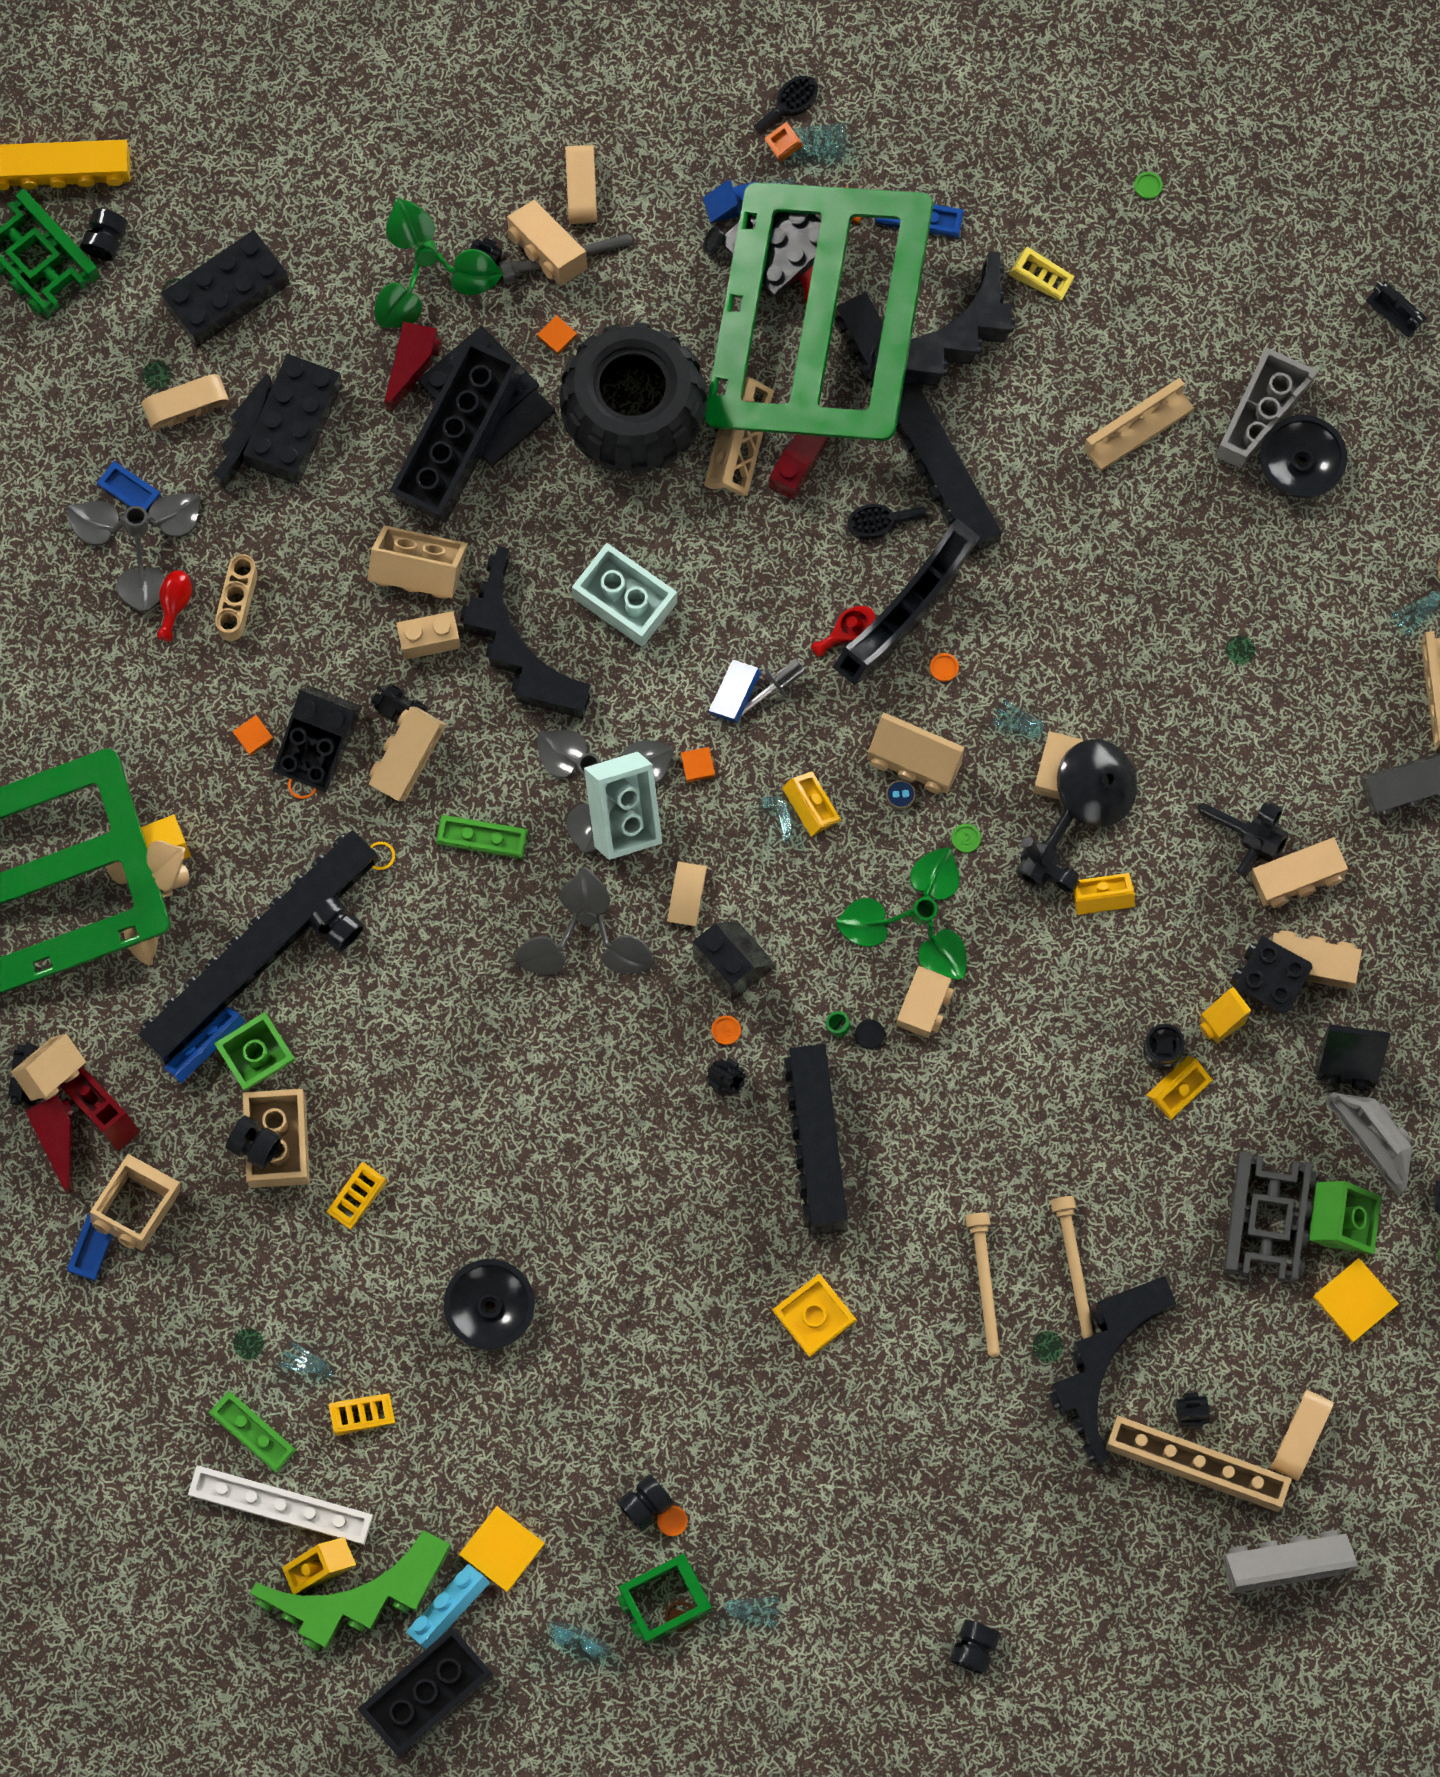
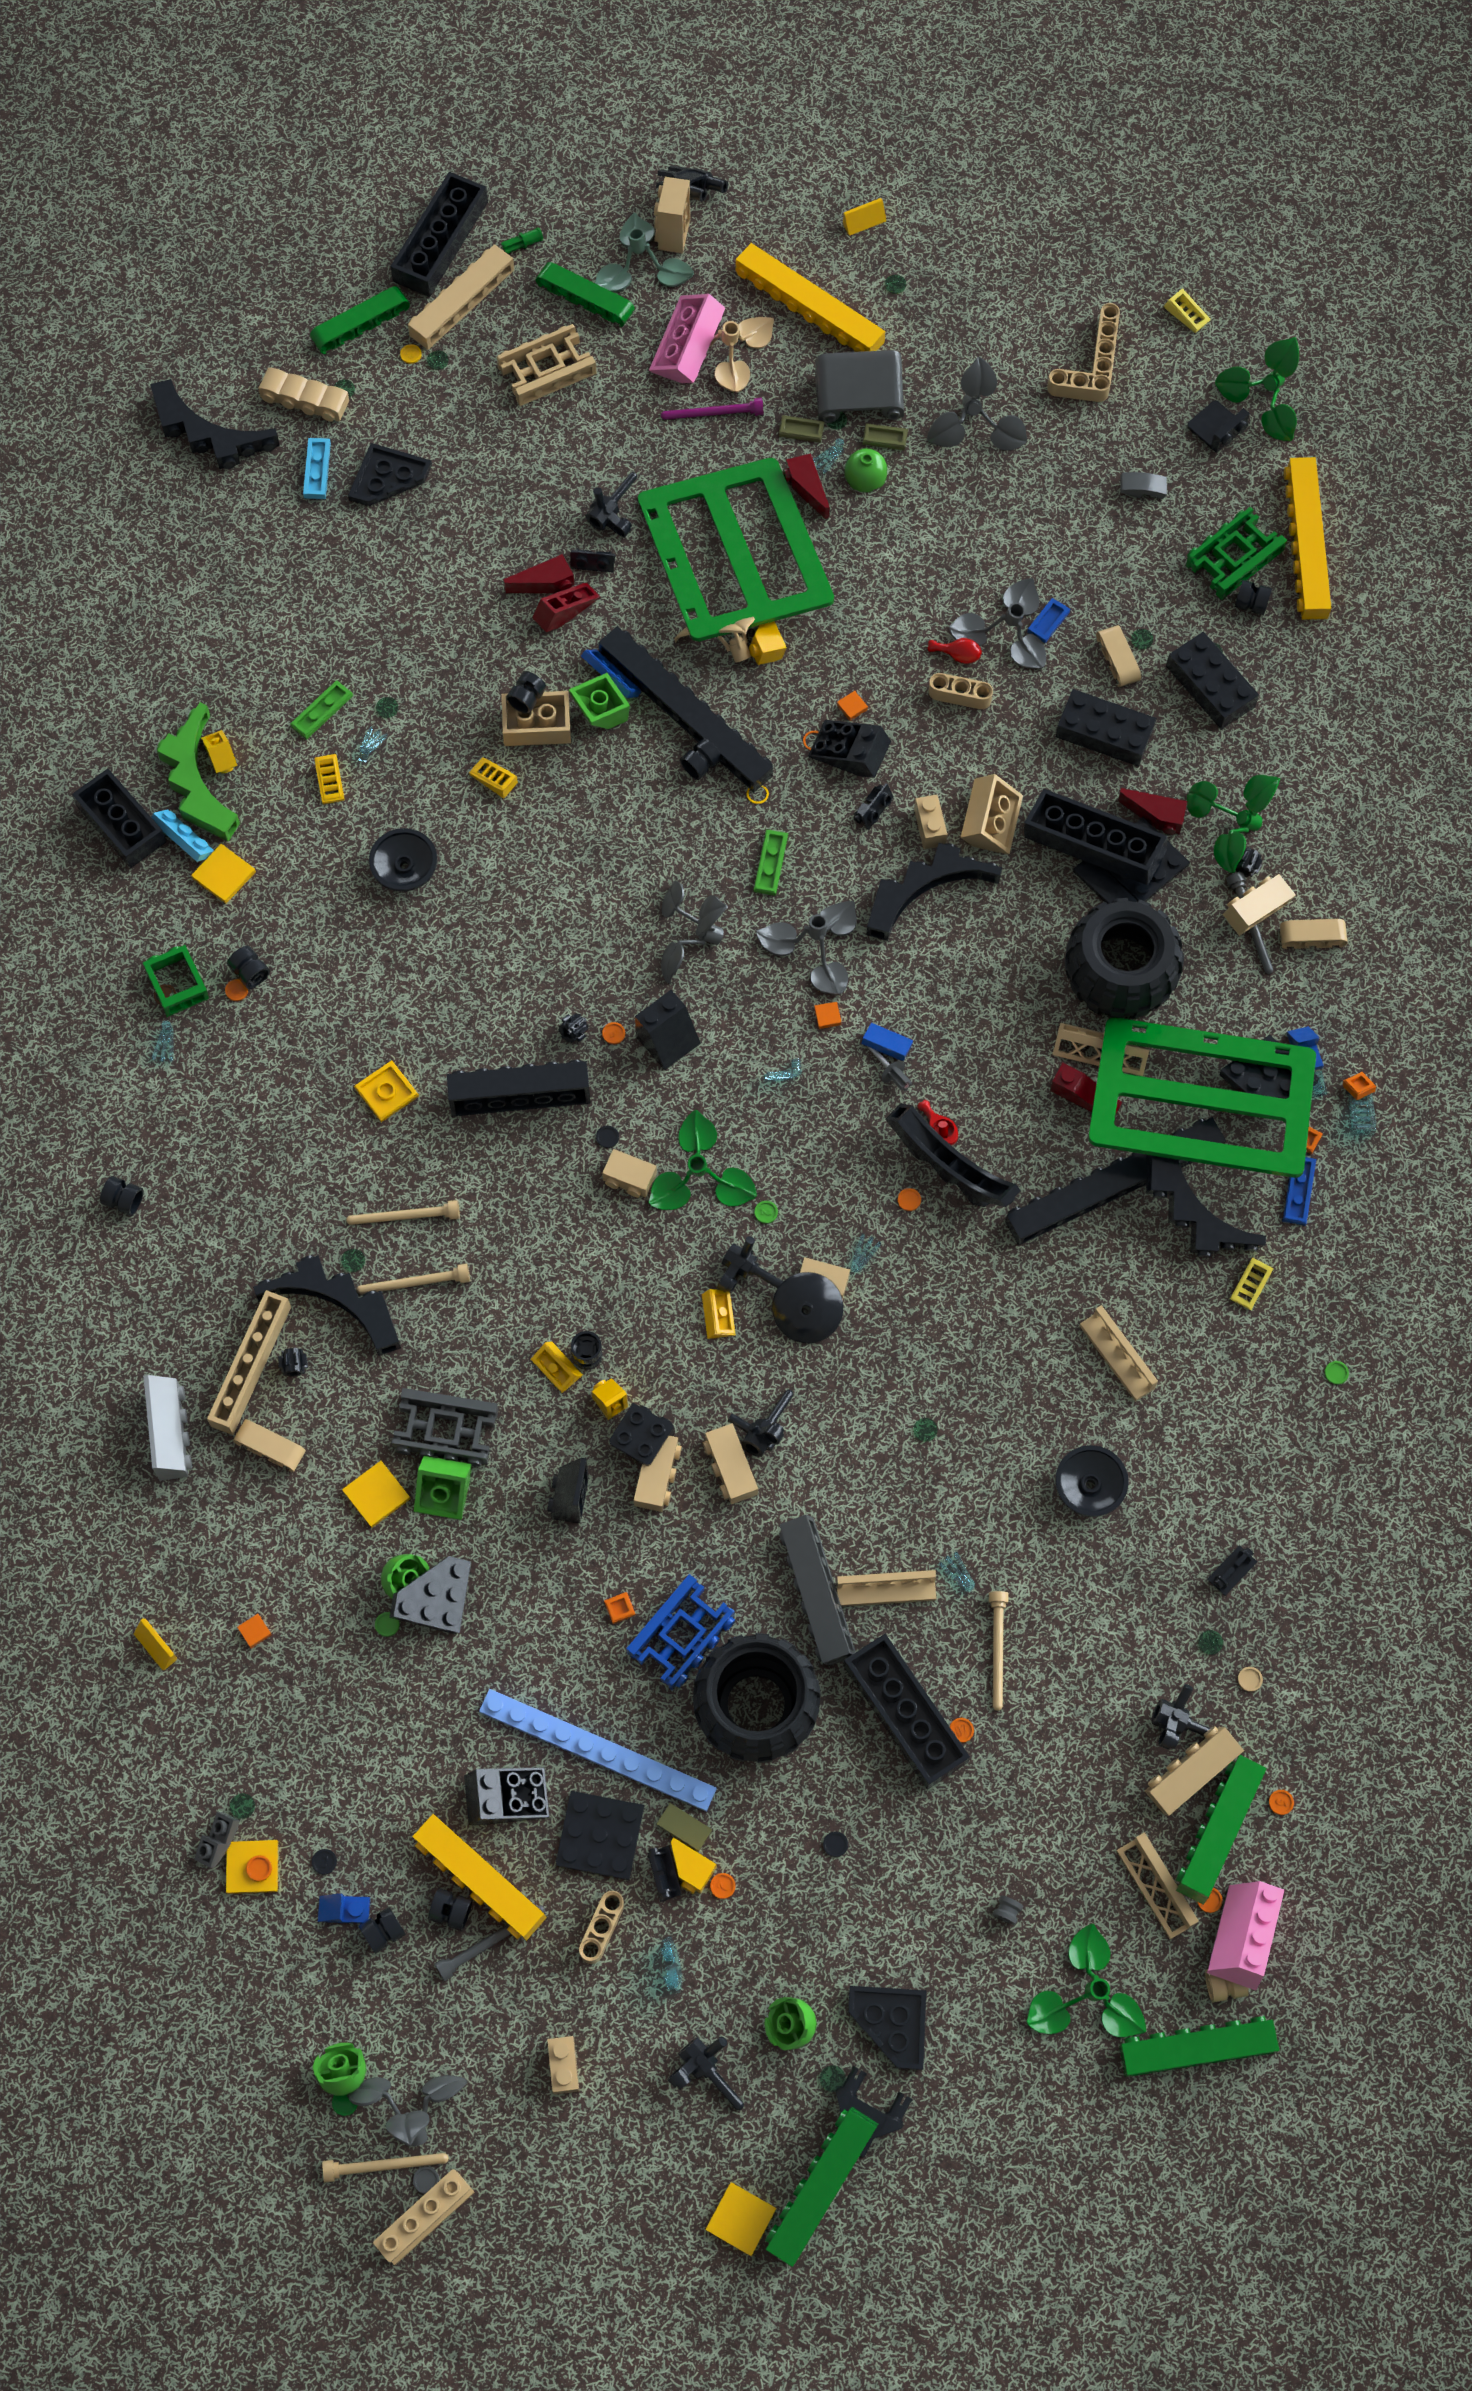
camera: 90 degrees right, 5 degrees down
(49, 1067) = (593, 568): tan brick -> none
(89, 1252) = (463, 605): blue tile -> none
(146, 1176) = (502, 613): tan window -> none
(244, 421) = (1065, 685): black slope -> none
(280, 1505) = (265, 727): white plate -> none
(406, 753) = (833, 804): tan brick -> none
(557, 335) = (1184, 917): orange tile -> none
(570, 1635) = (155, 915): clear light blue slope -> none
(623, 805) = (786, 948): light aqua brick -> none
(624, 595) = (964, 959): light aqua brick -> none
(687, 893) = (723, 1004): tan slope -> none
(713, 240) = (1269, 1031): black piece -> none
(793, 99) = (1397, 1094): black piece -> none
(811, 803) = (796, 1098): yellow slope -> none
(833, 1022) = (617, 1109): green hinge -> none
(877, 520) = (1032, 1151): black piece -> none
(900, 795) = (801, 1163): dark blue tile -> none
(915, 754) = (831, 1169): tan slope -> none
(1268, 398) = (1142, 1453): light grey wedge -> none
(1376, 1135) = (507, 1515): light grey wedge -> none

